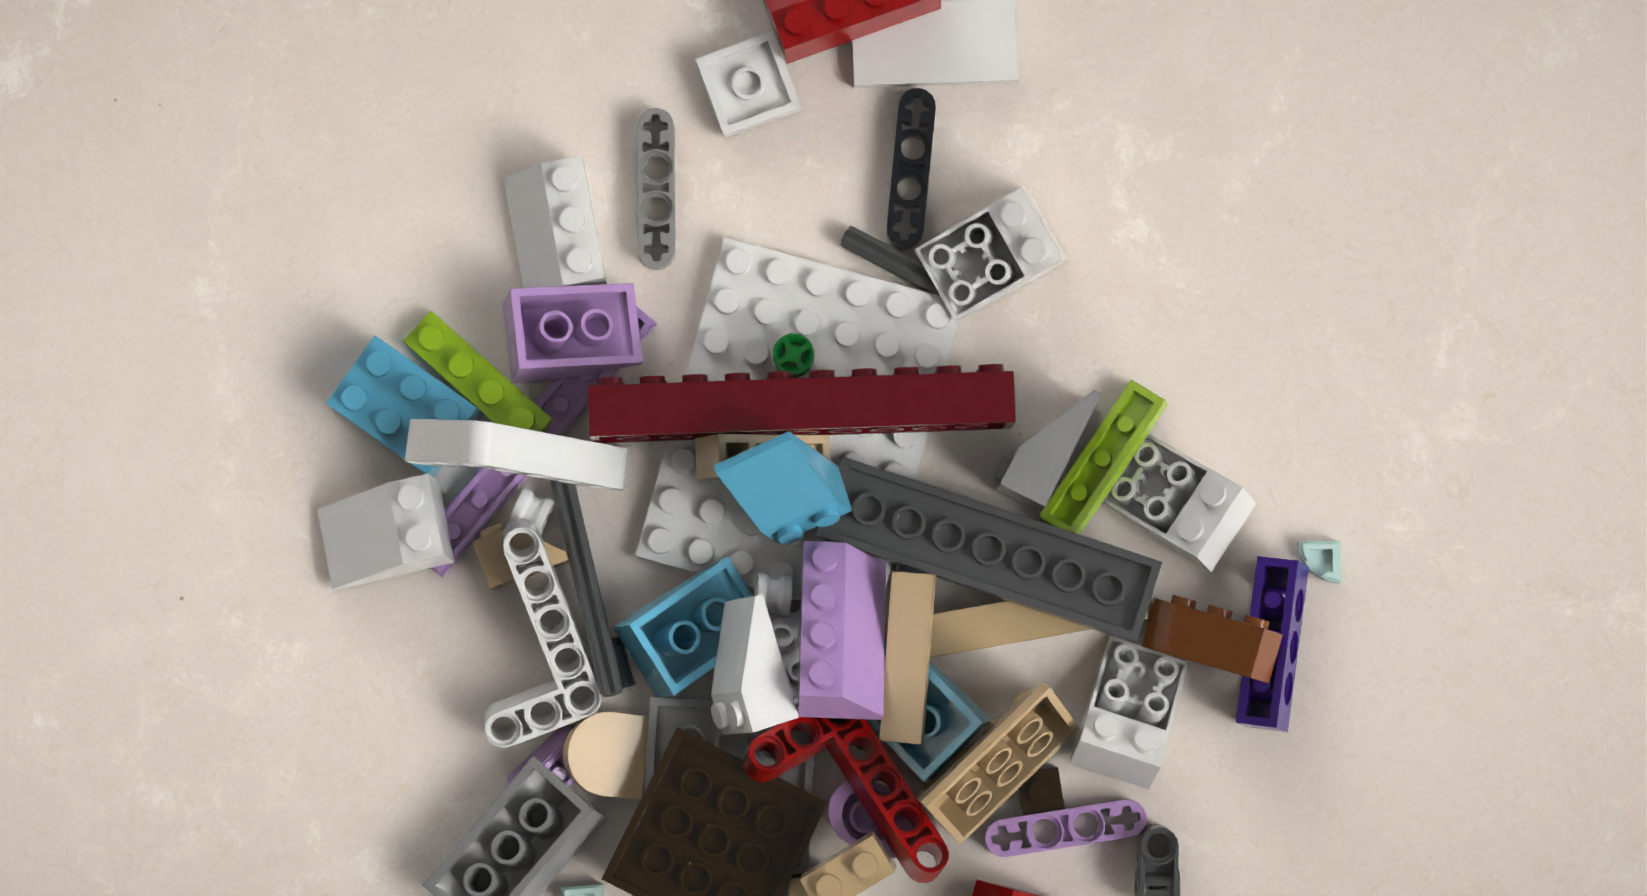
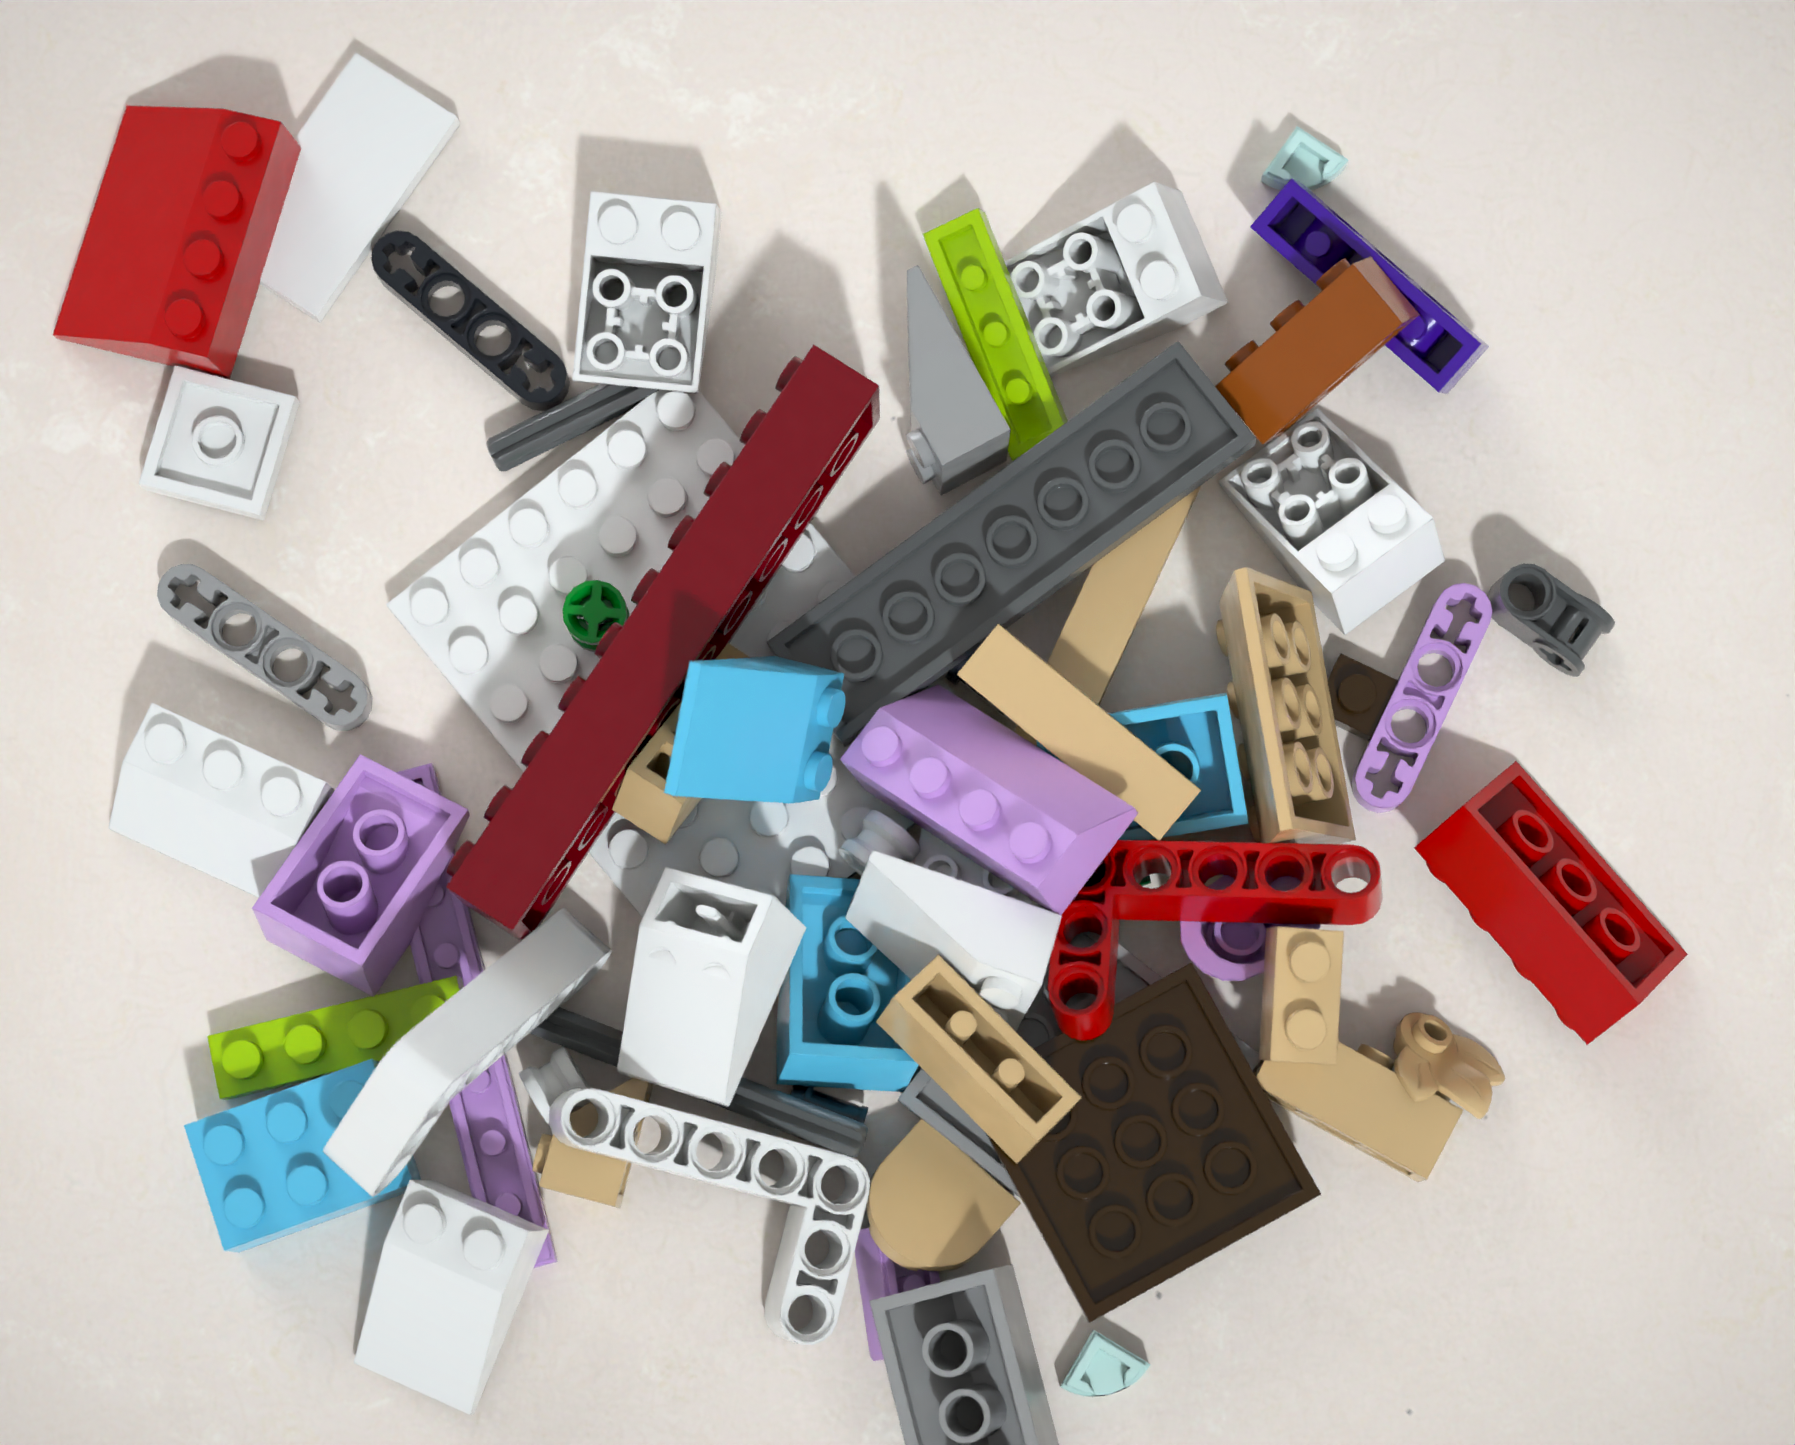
camera: 50 degrees left, 5 degrees down
(634, 553) = (704, 983): none -> white slope
(694, 725) = (977, 1058): none -> tan brick

